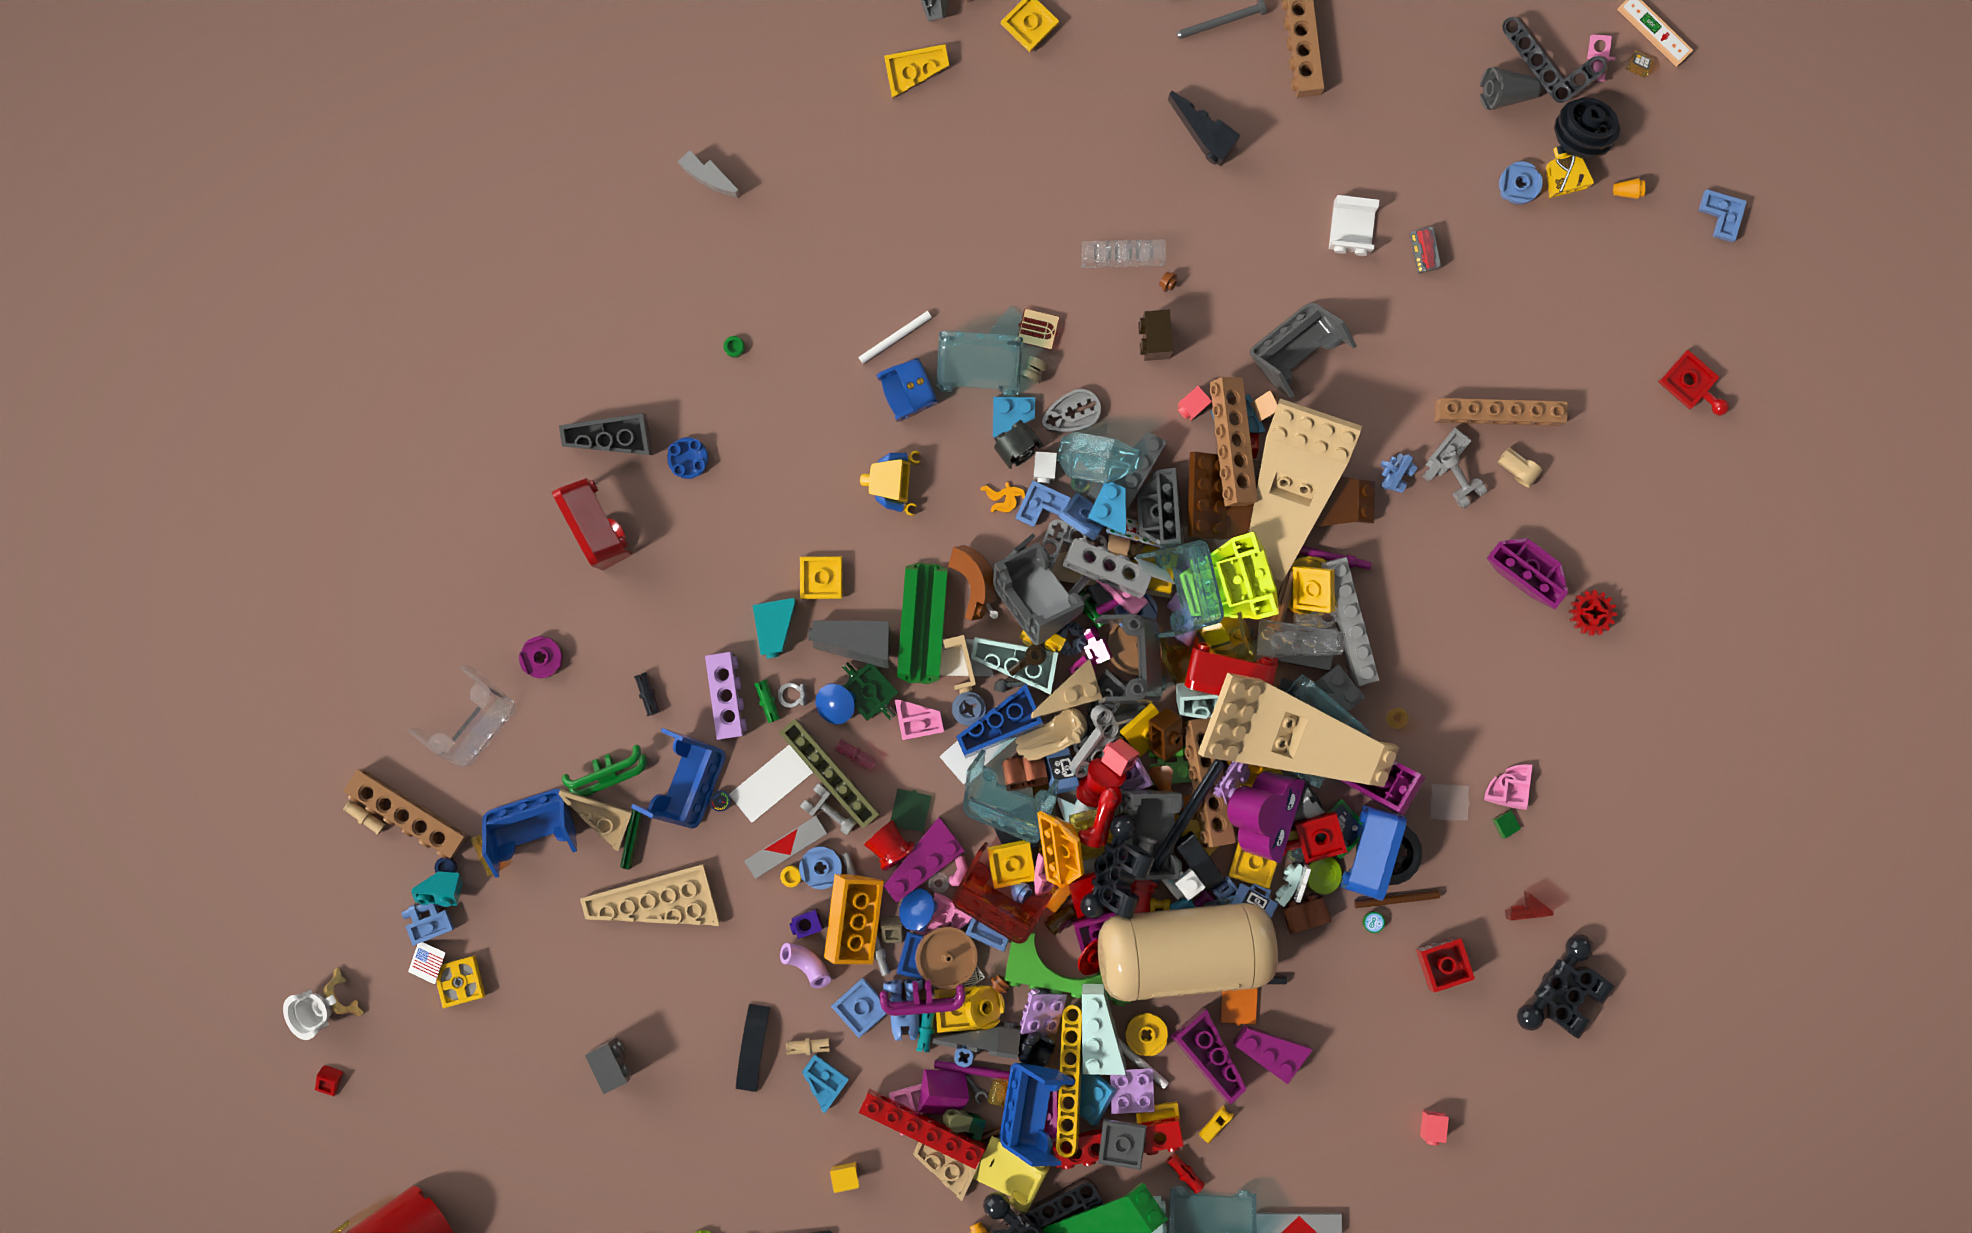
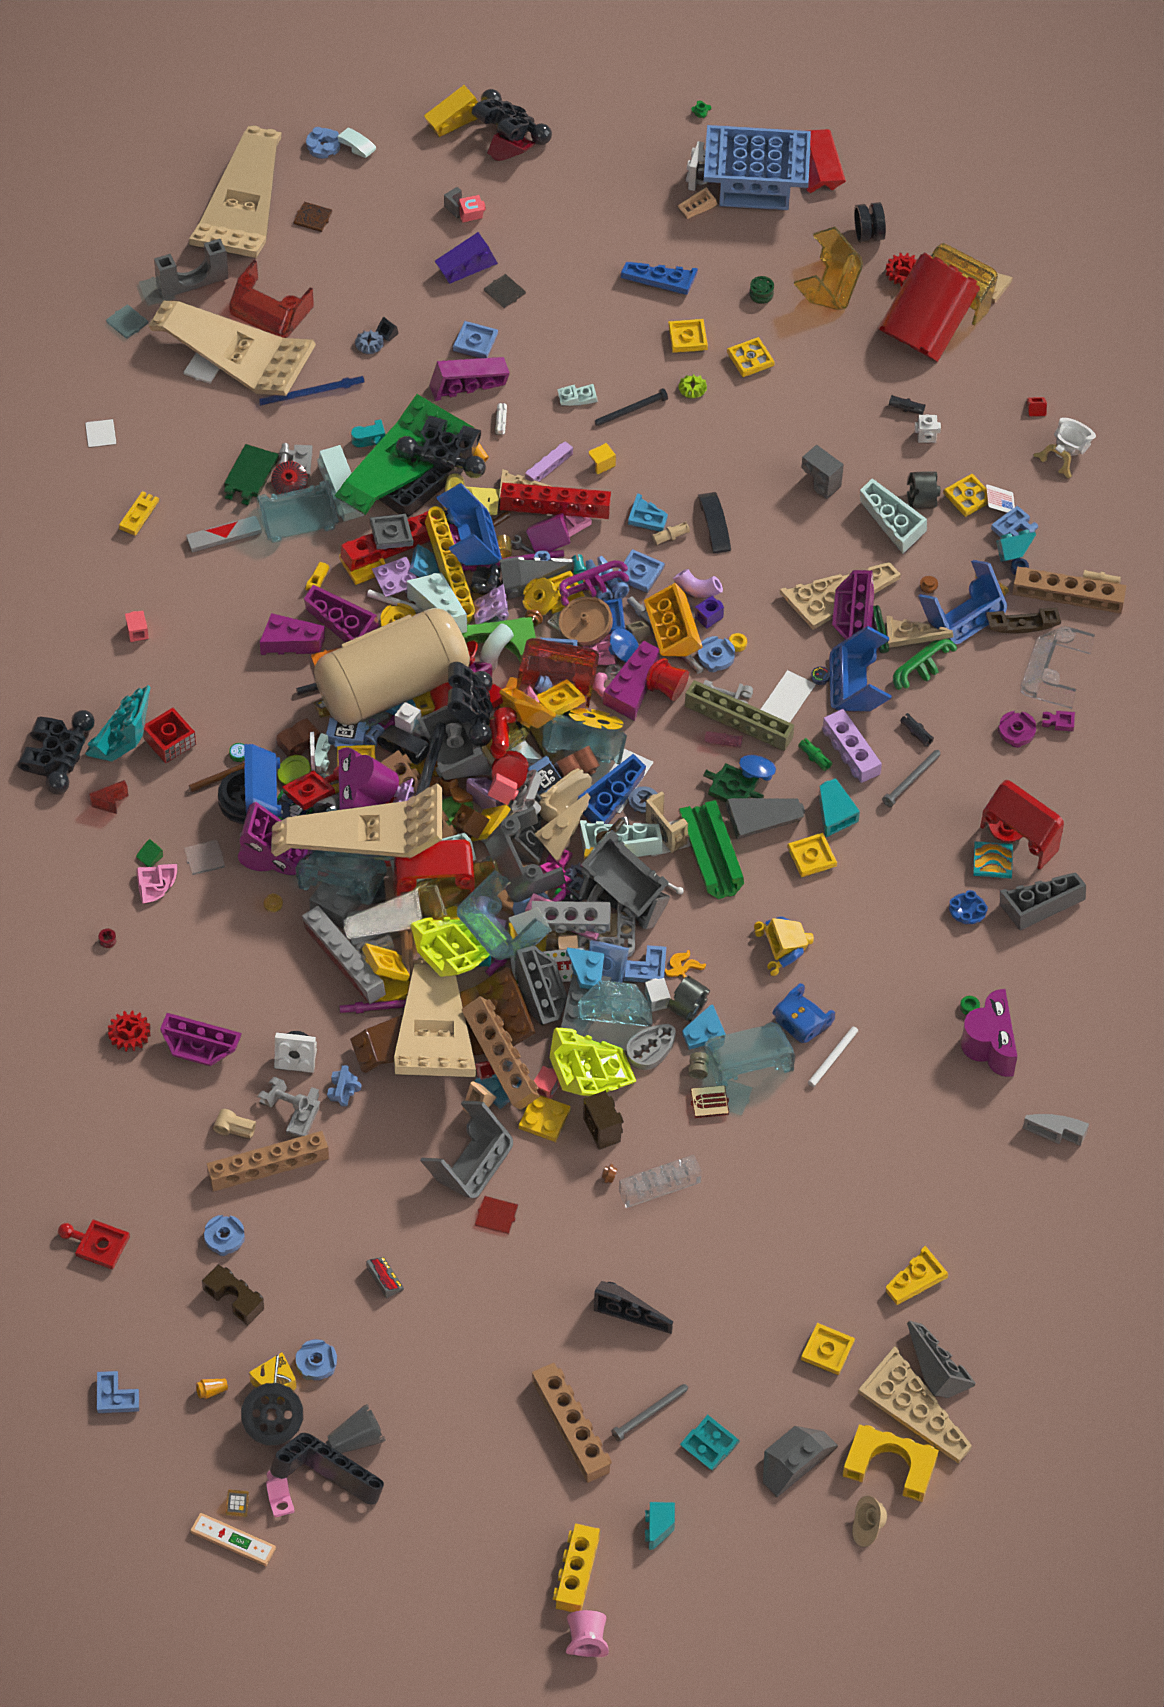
camera: 155 degrees right, 30 degrees down
(470, 1083) = (927, 428): none -> white brick
(473, 791) = (1023, 623): none -> dark brown slope
(473, 1132) = (907, 405): none -> black pin
(490, 649) = (1062, 720): none -> magenta plate
(507, 1000) = (923, 489): none -> pearl dark grey brick
(554, 878) = (928, 584): none -> dark orange plate
(554, 976) = (893, 515): none -> light aqua wedge
(637, 505) = (993, 859): none -> slope
(651, 865) = (854, 603): none -> magenta wedge
(712, 617) = (889, 799): none -> dark grey bar
(729, 295) = (990, 1035): none -> magenta brick
(785, 847) = (751, 660): light grey tile -> none
(801, 701) = (790, 772): light grey piece -> none
(905, 1194) = (549, 462): none -> lavender piece
(910, 810) = (660, 716): clear green piece -> none
(917, 720) = (683, 778): bright pink wing -> none
(969, 1122) = (522, 517): leg -> none
(979, 576) = (682, 892): dark orange arch -> none
(992, 811) = (600, 715): none -> yellow piece
(1058, 921) = (503, 674): dark brown cone -> none
(1058, 953) = (495, 644): none -> light aqua cylinder
(1147, 396) = (587, 1065): none -> neon yellow wedge
(1185, 1173) = (334, 540): red pin -> none
(1206, 367) = (545, 1118): none -> yellow plate
(1292, 280) = (496, 1215): none -> clear red piece
(1353, 225) = (458, 1273): white panel -> none
(1434, 525) = (295, 1051): none -> white piece
(1493, 989) = (123, 728): none -> teal wedge
(1560, 359) = (226, 1224): none -> medium blue plate
(1583, 295) = (222, 1282): none -> dark brown arch
(1587, 735) = (104, 933): none -> dark red bush

